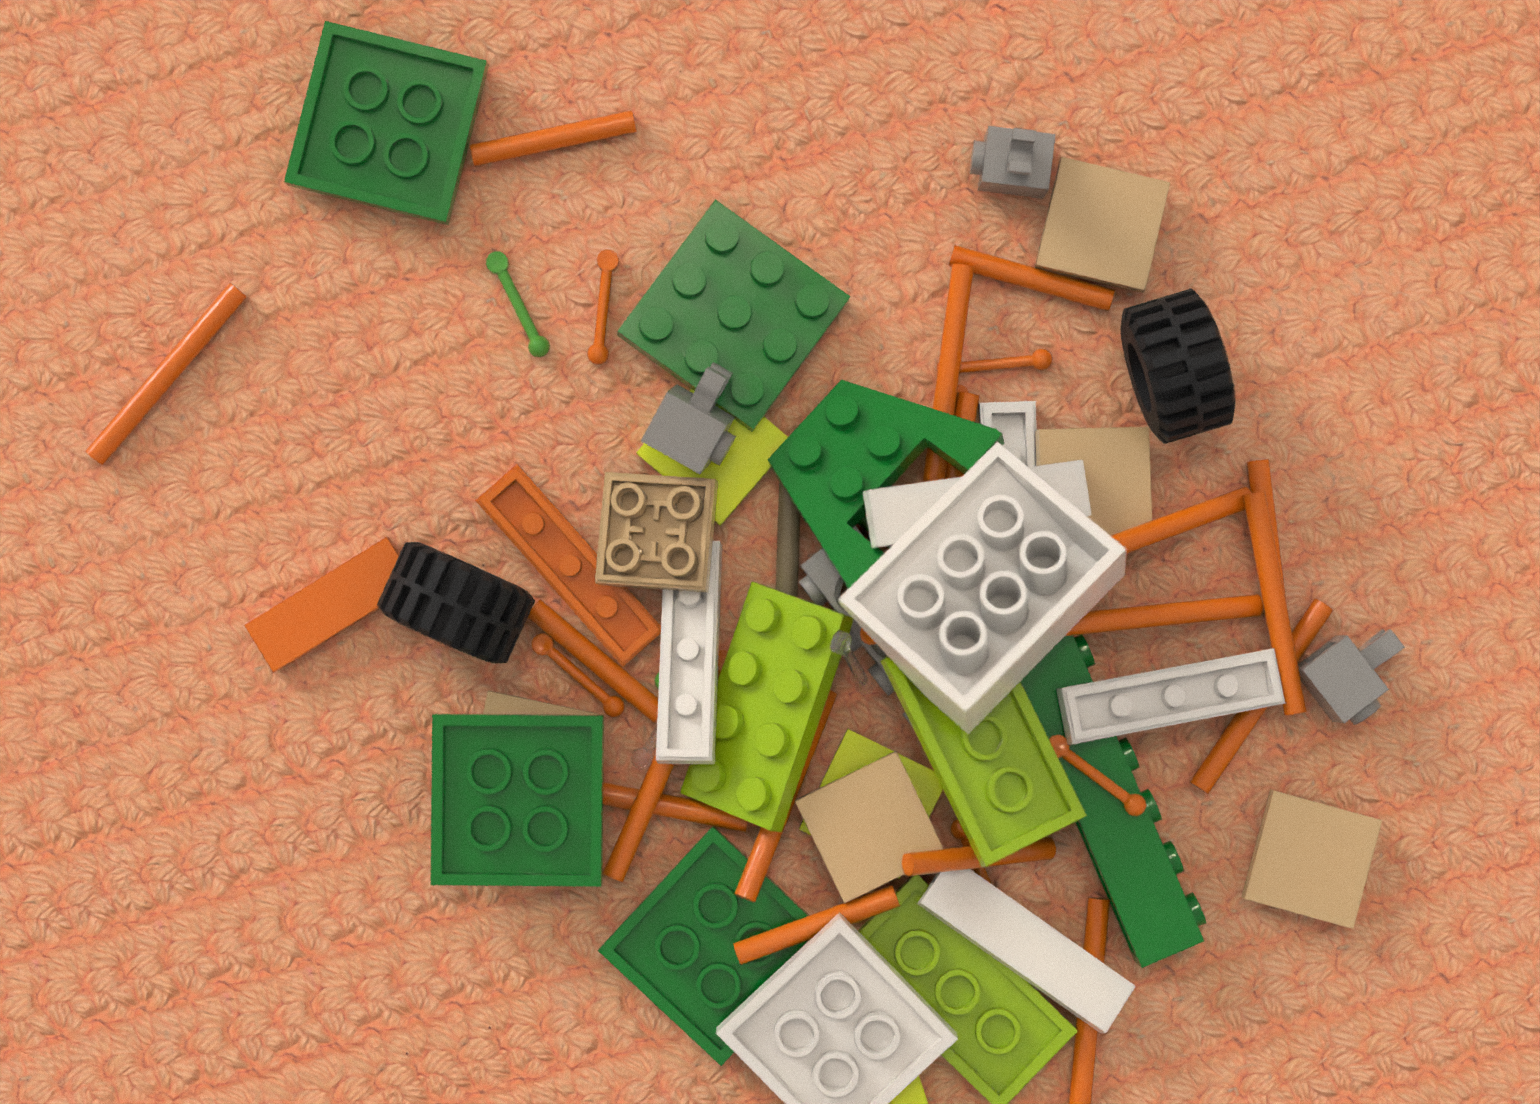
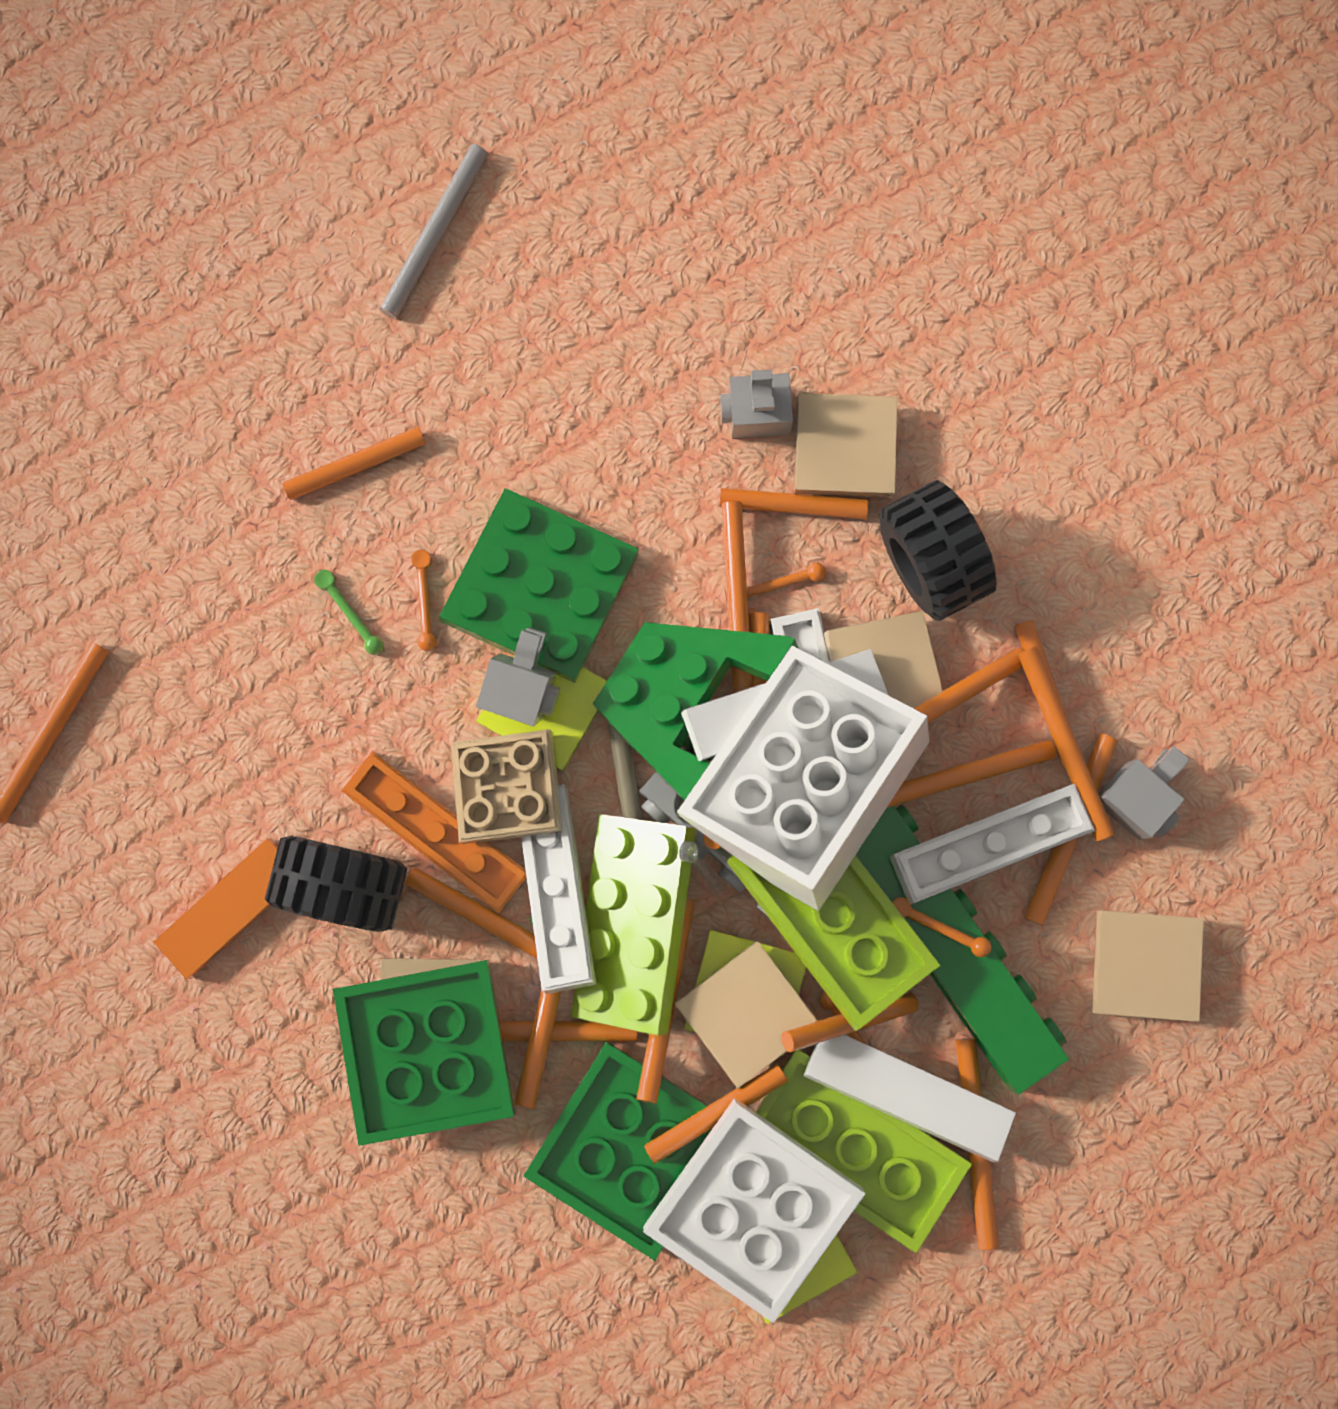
camera: 10 degrees left, 5 degrees down
(386, 122) = (205, 477): green plate -> none
(544, 645) = (426, 907): orange hinge -> none

